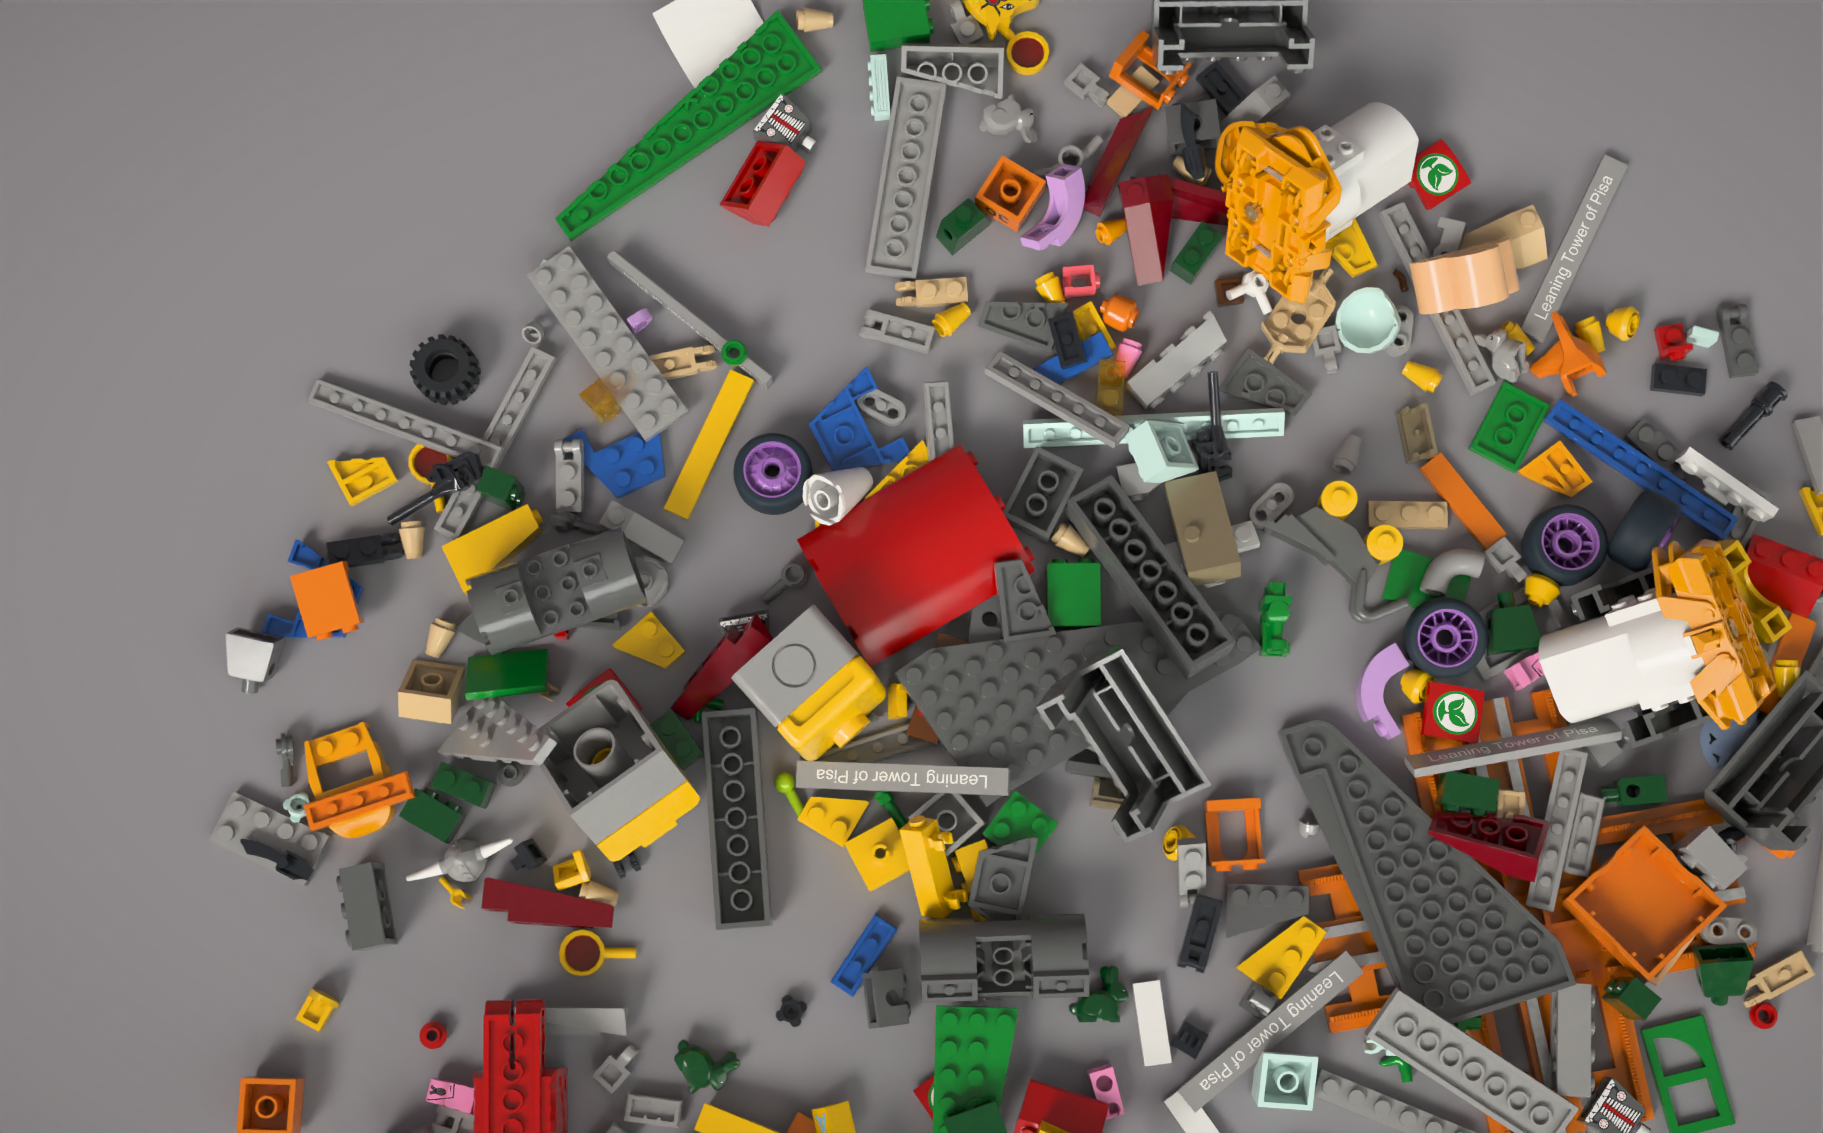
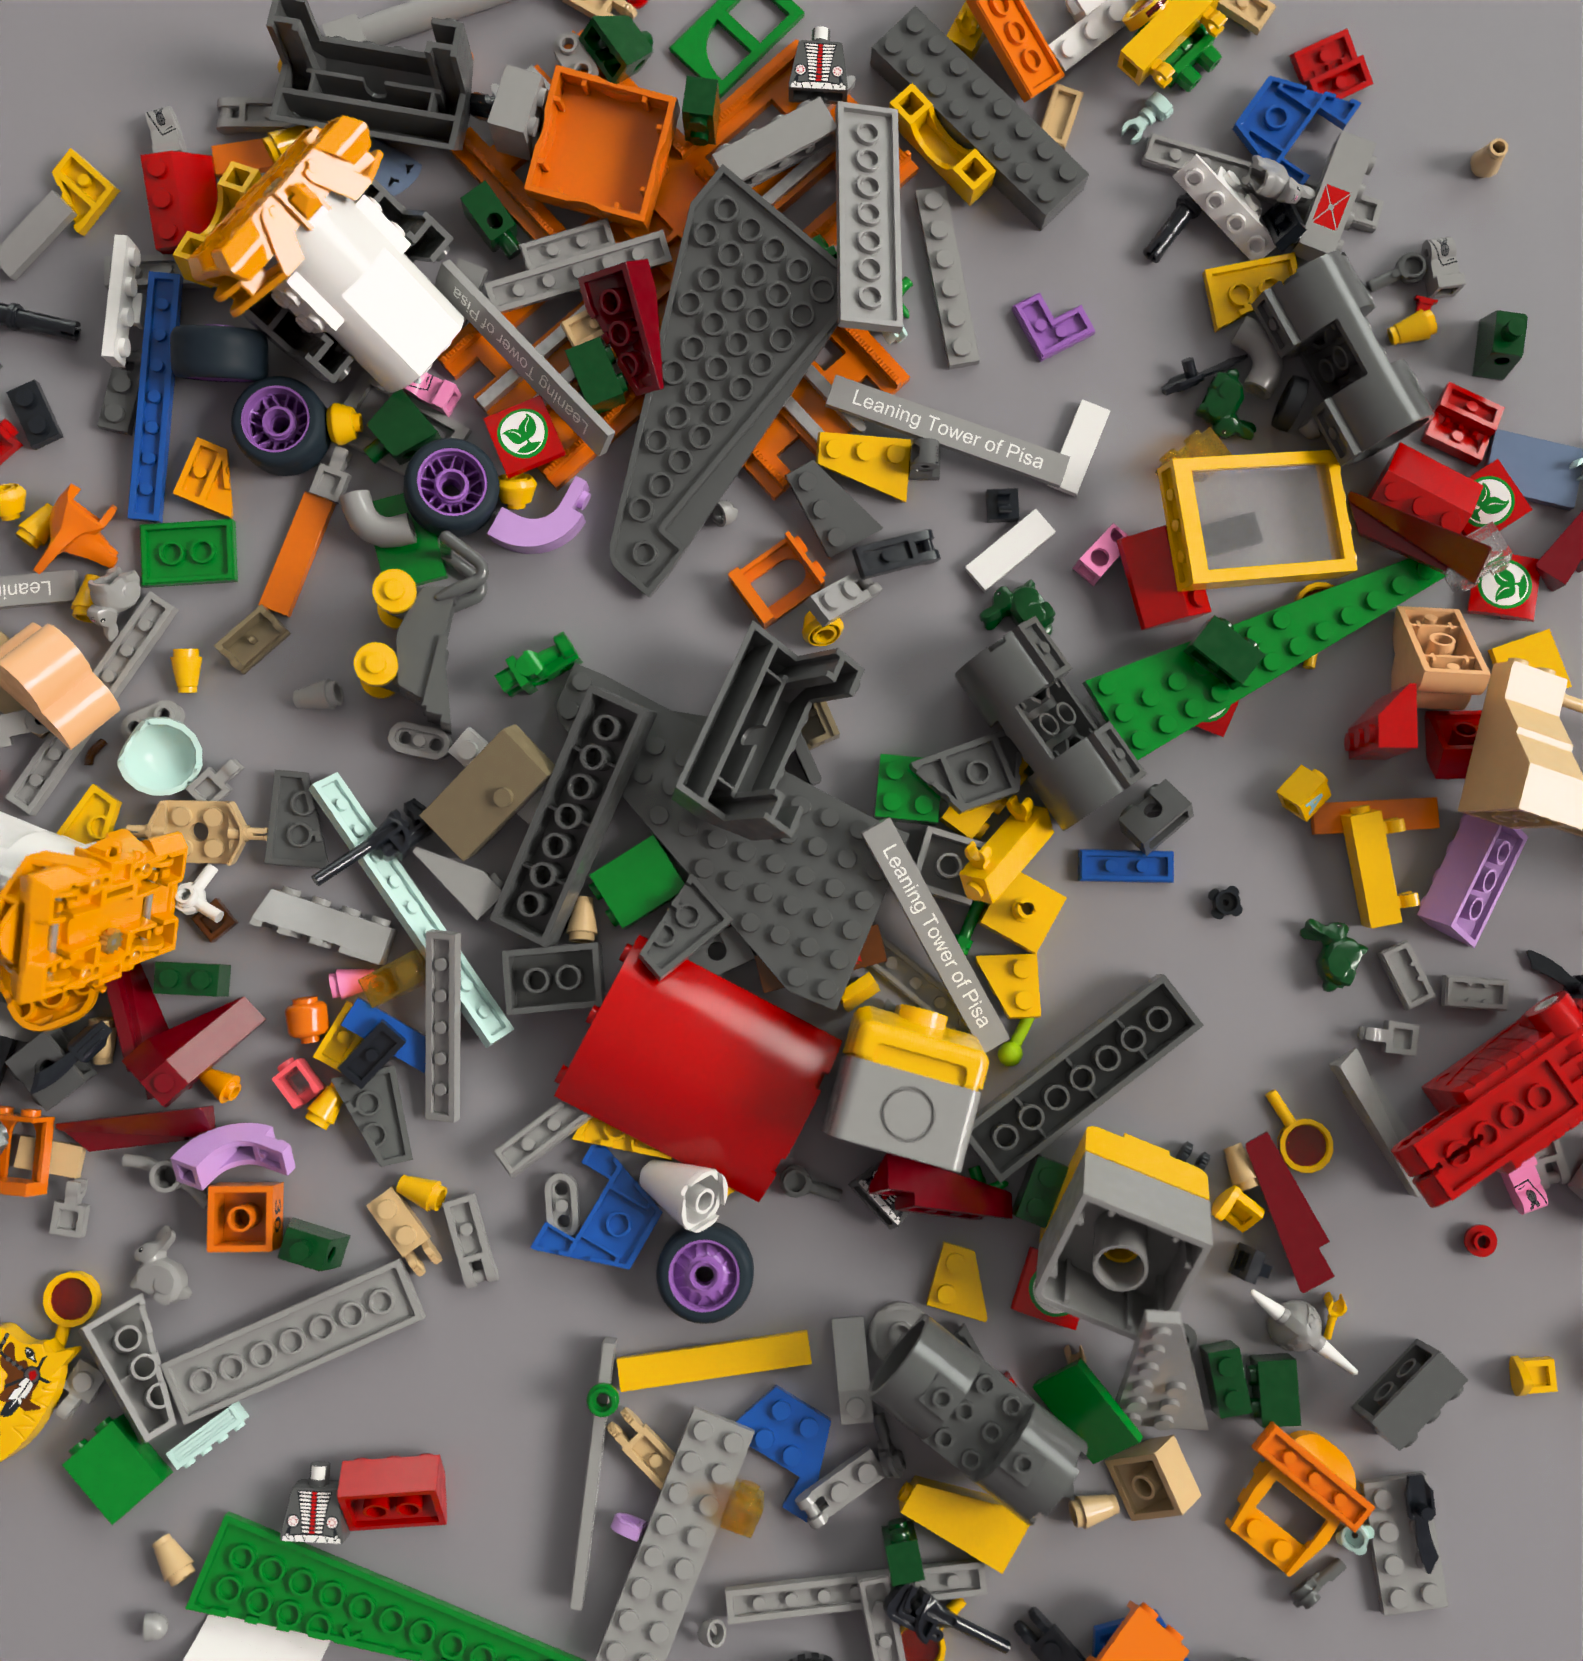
camera: 125 degrees left, 5 degrees up
(412, 538) = (1011, 1609): tan cone -> none
(1161, 451) = (433, 883): light aqua slope -> none
(1285, 1080) = (988, 388): light aqua slope -> none
(1407, 514) = (345, 601): tan plate -> none

